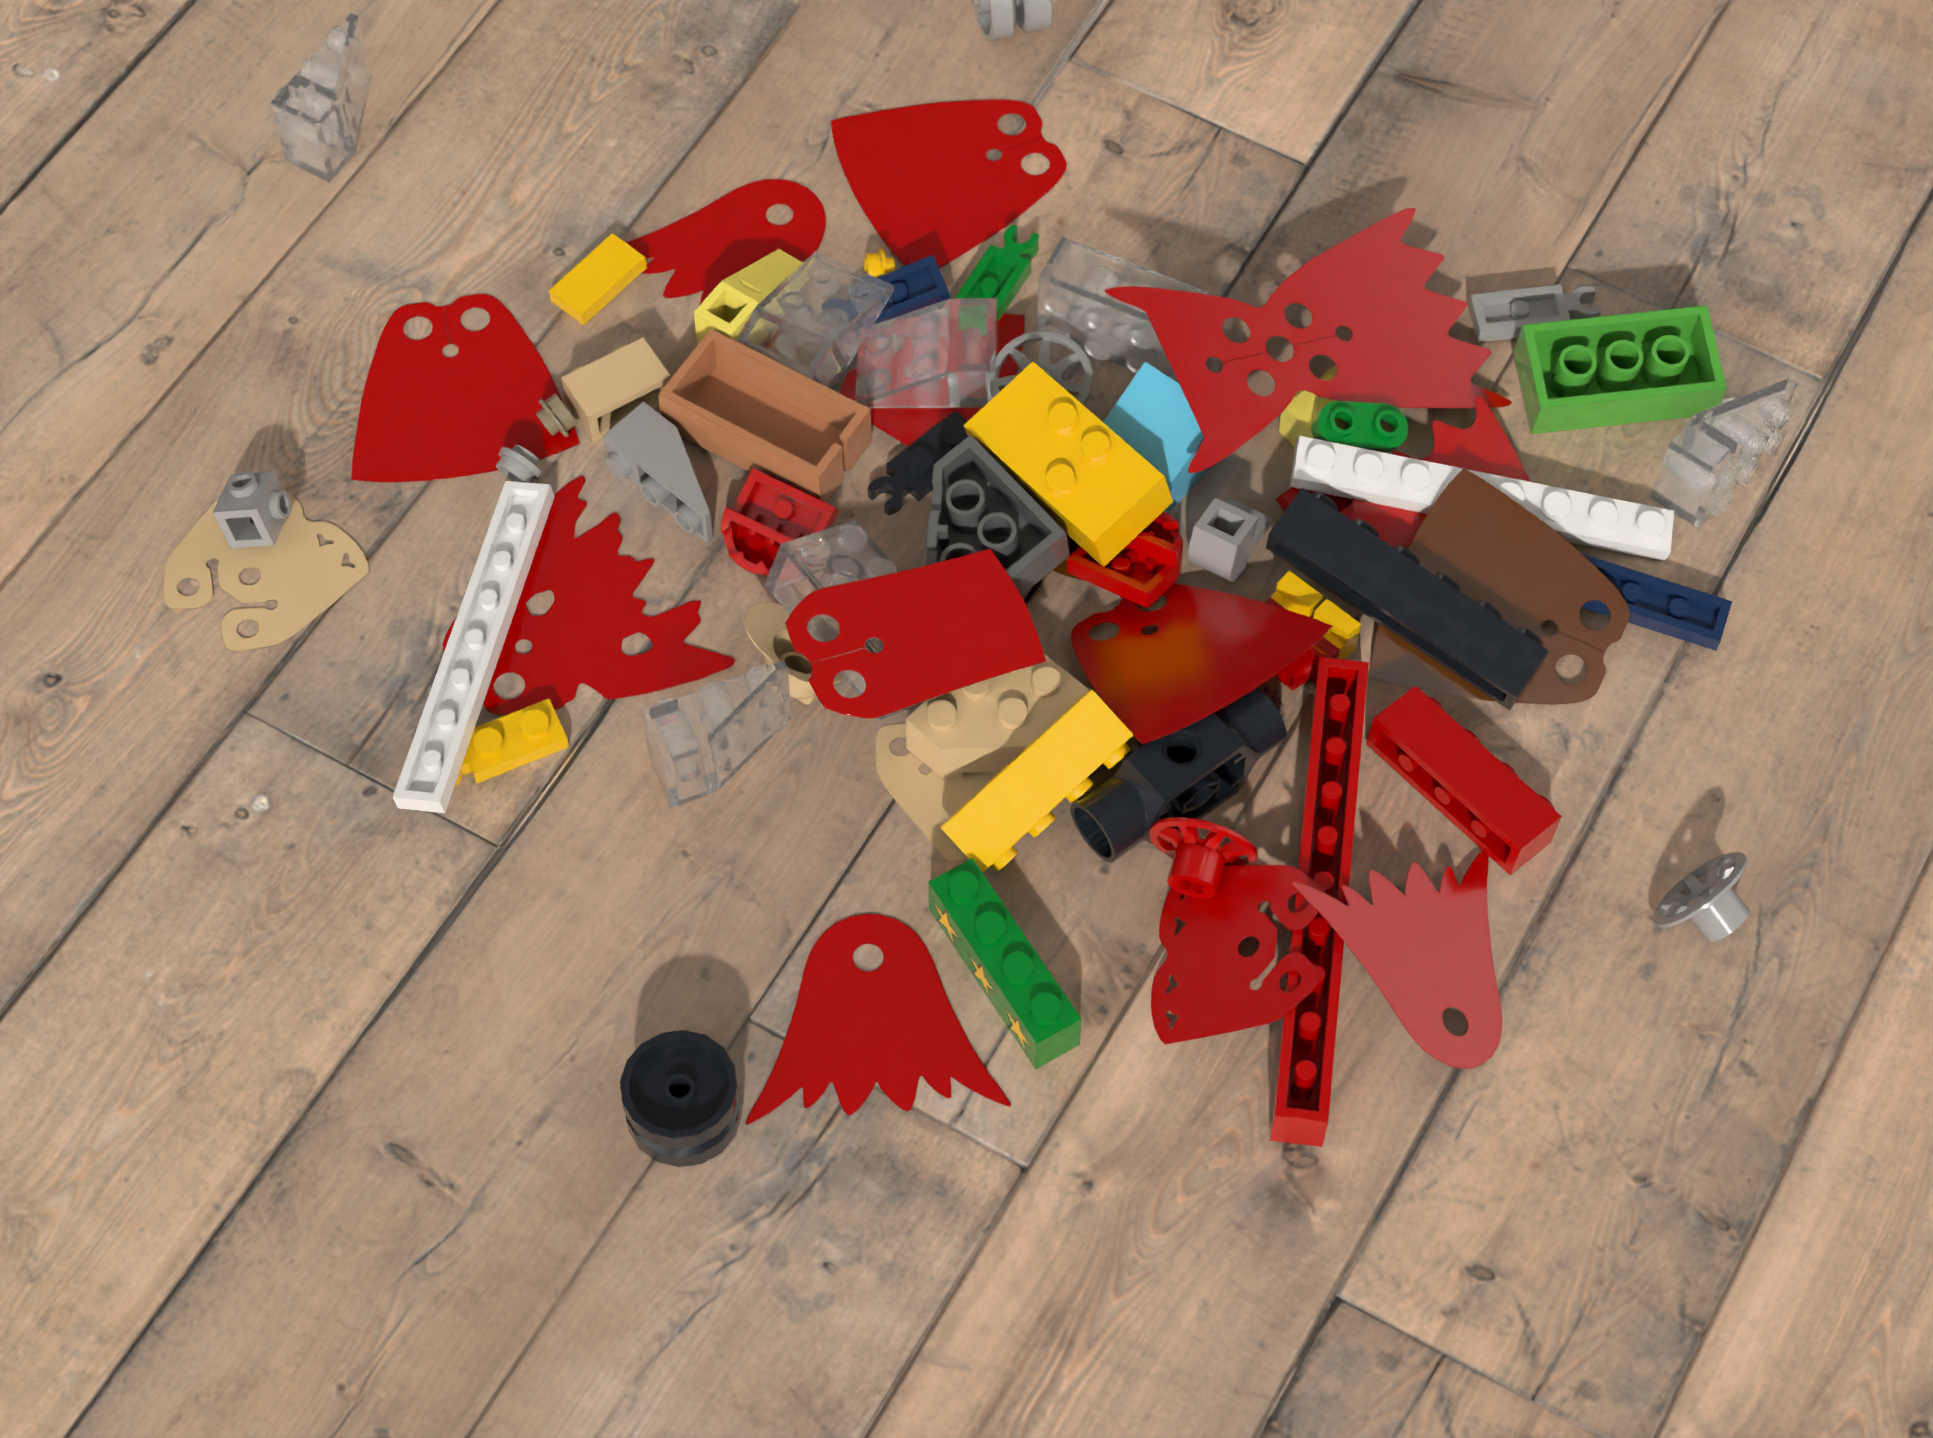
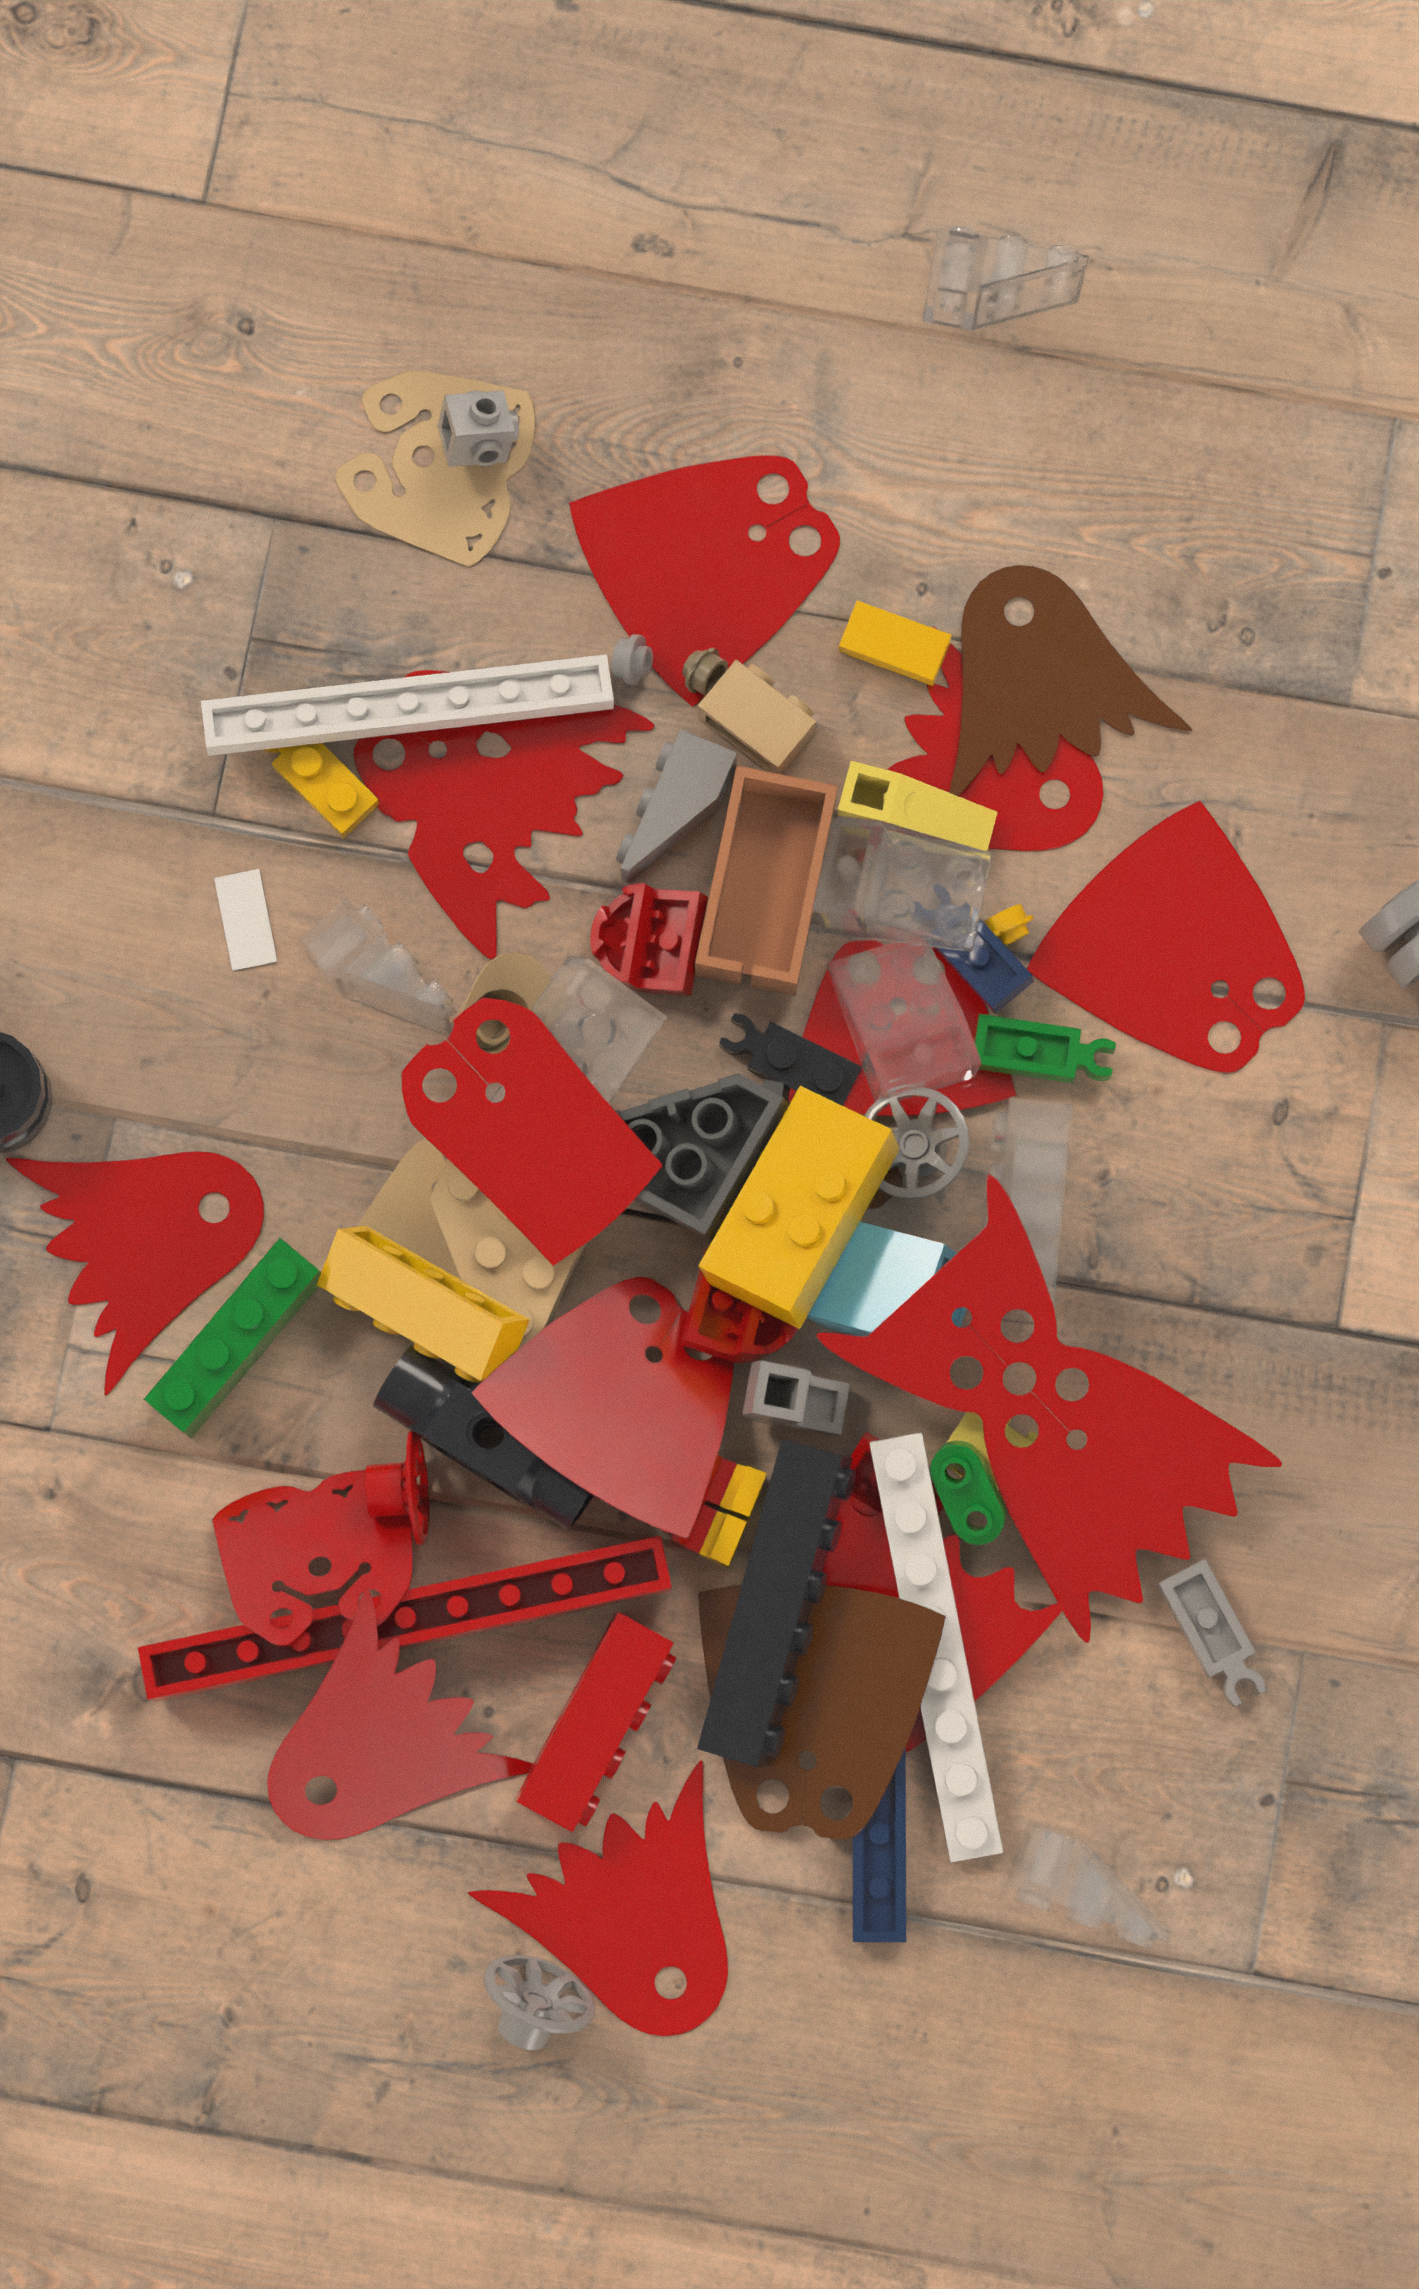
camera: 70 degrees right, 20 degrees up
(608, 848) = (245, 919): none -> white sticker
(675, 192) = (1041, 677): none -> reddish brown piece
(1618, 369) = (1159, 1747): bright green brick -> none
(1643, 815) = (634, 1915): none -> red piece

